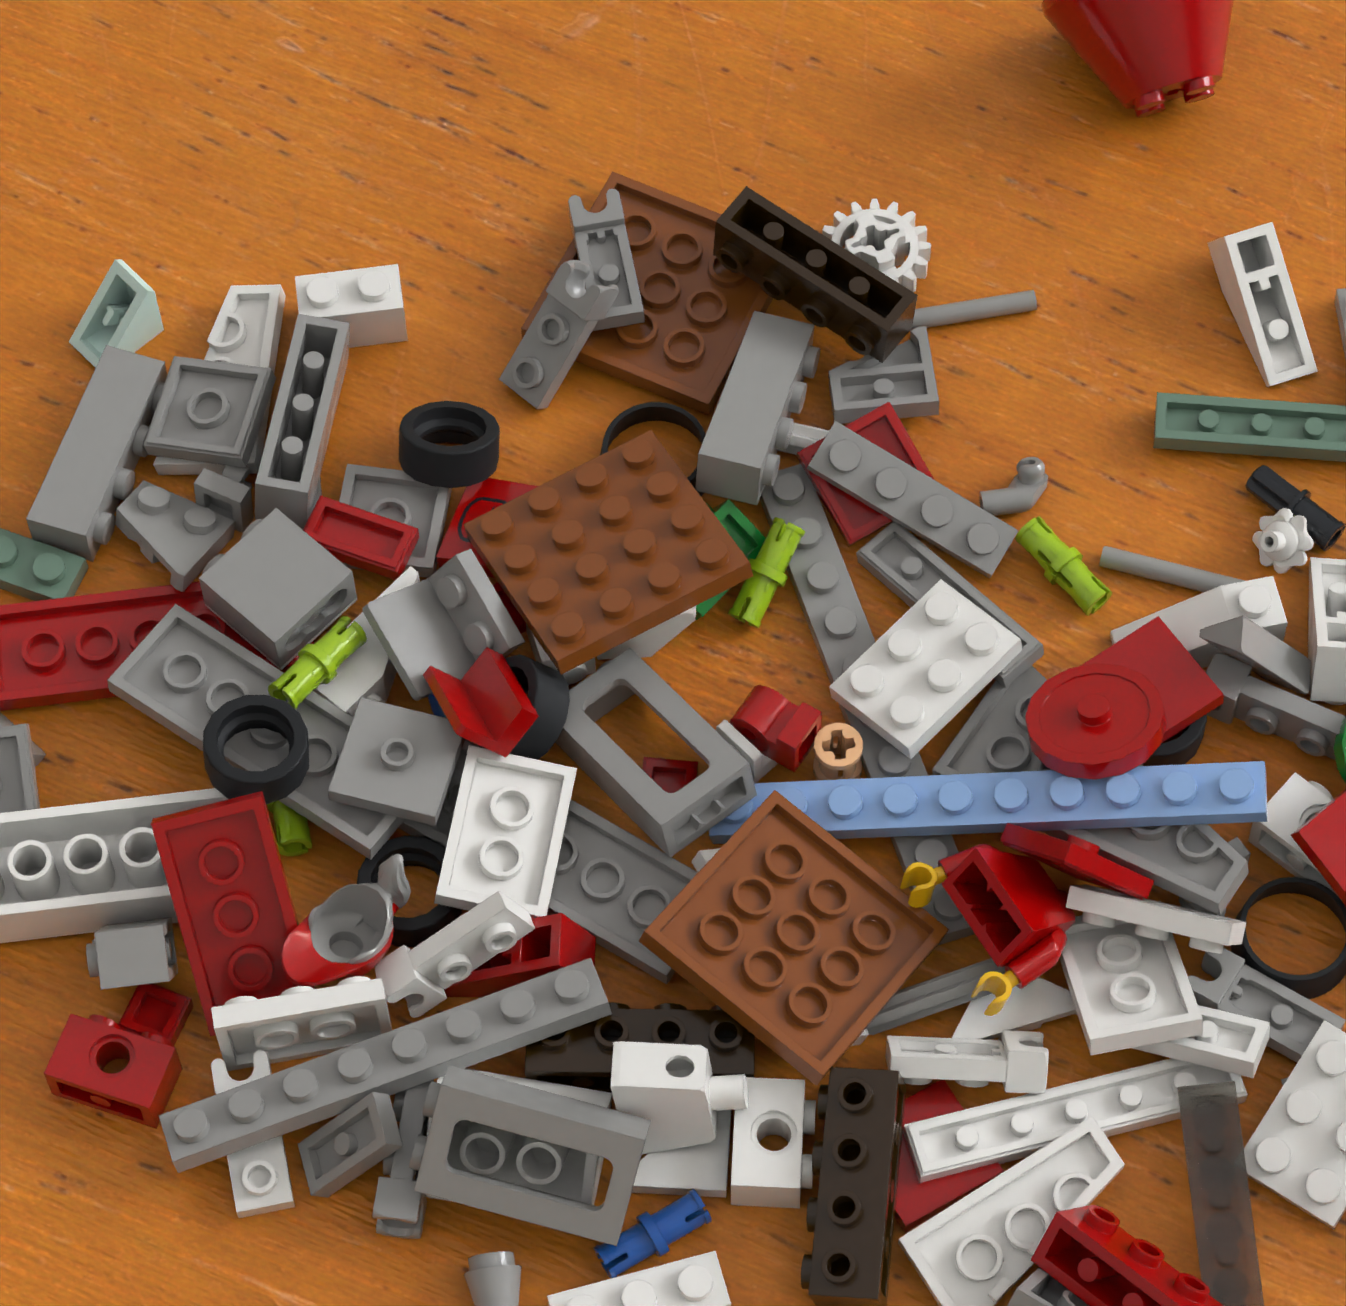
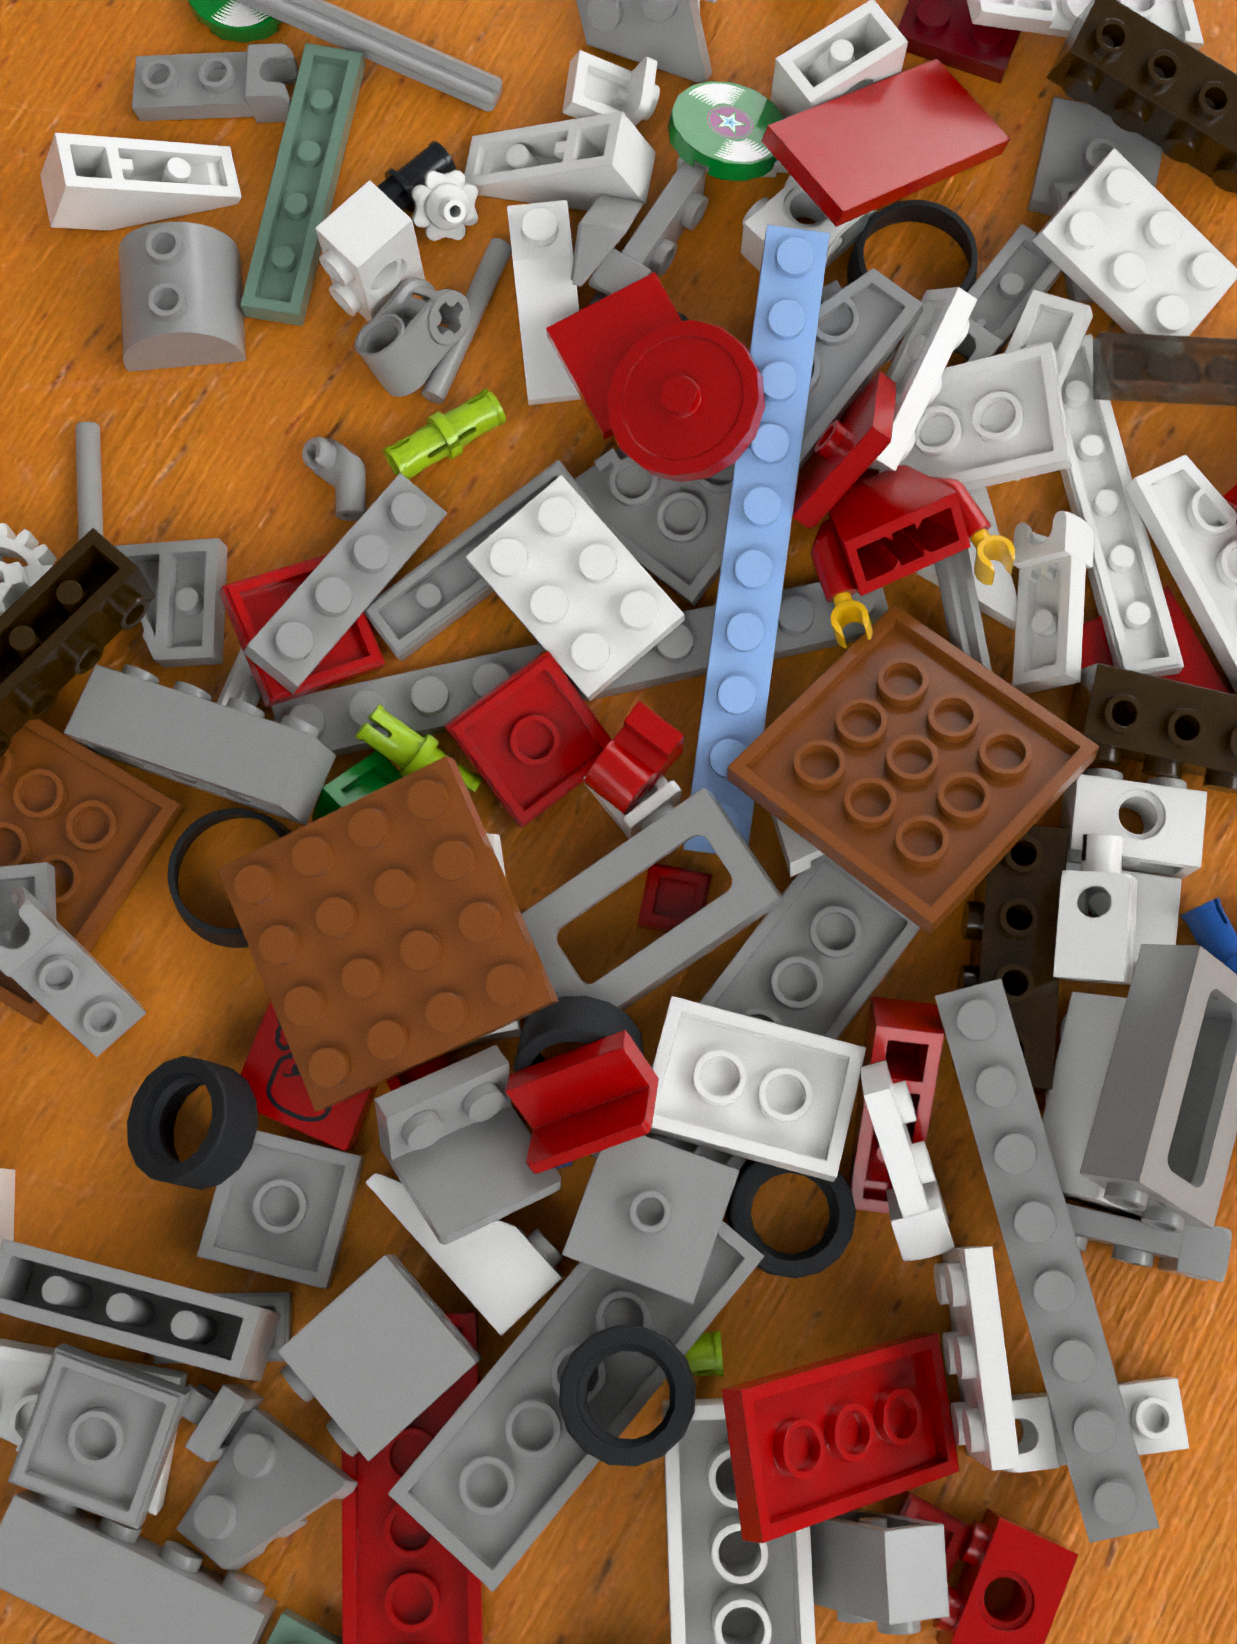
camera: 85 degrees left, 15 degrees up
(318, 662) = (504, 1308): lime pin -> none
(348, 930) = (880, 1297): light grey hair -> none
(350, 1144) = (1131, 1300): light grey plate -> none
(362, 537) = (310, 1247): red tile -> none
(792, 649) = (530, 738): none -> red plate
(849, 746) = (671, 683): light nougat bush -> none
(1146, 524) = (406, 337): none -> light grey piece
(1159, 349) = (180, 297): none -> light grey brick
(1210, 478) = (368, 251): none -> white brick

